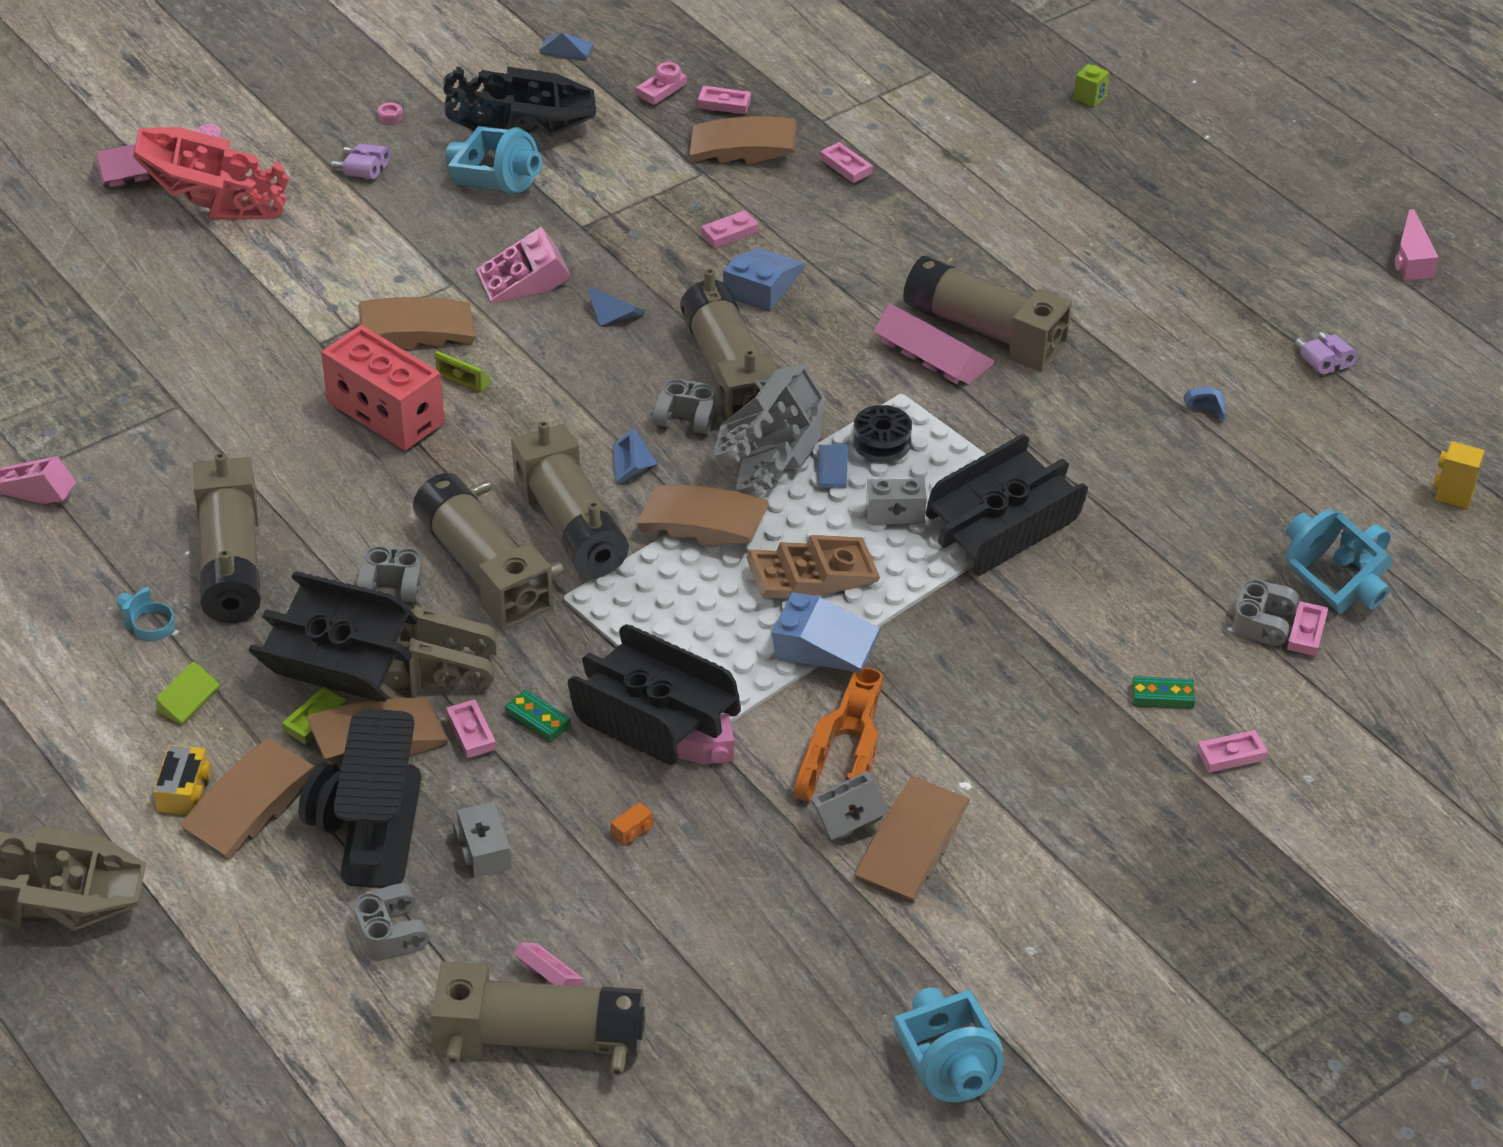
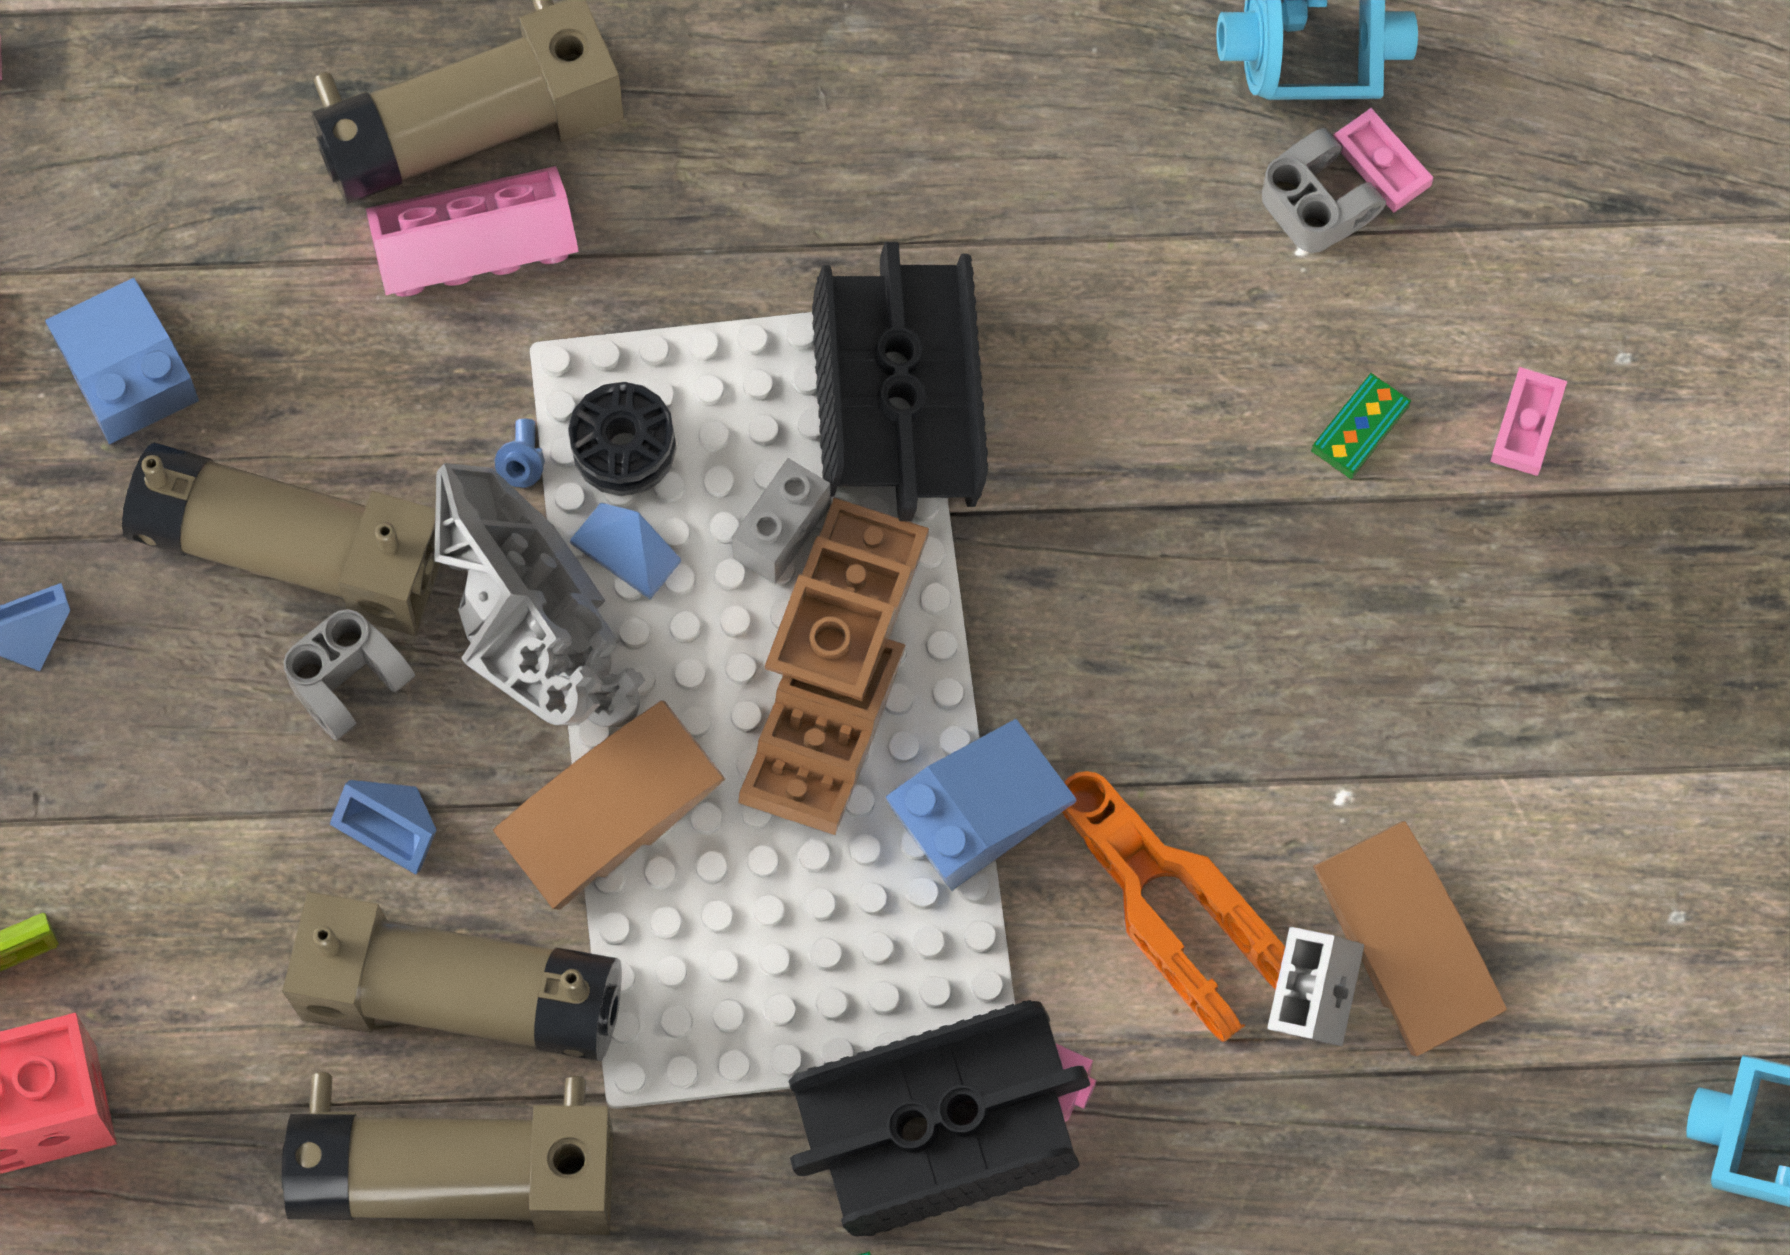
camera: 55 degrees left, 25 degrees up
(841, 414) = (520, 460): none -> medium blue plate
(880, 542) = (847, 599): none -> medium nougat slope

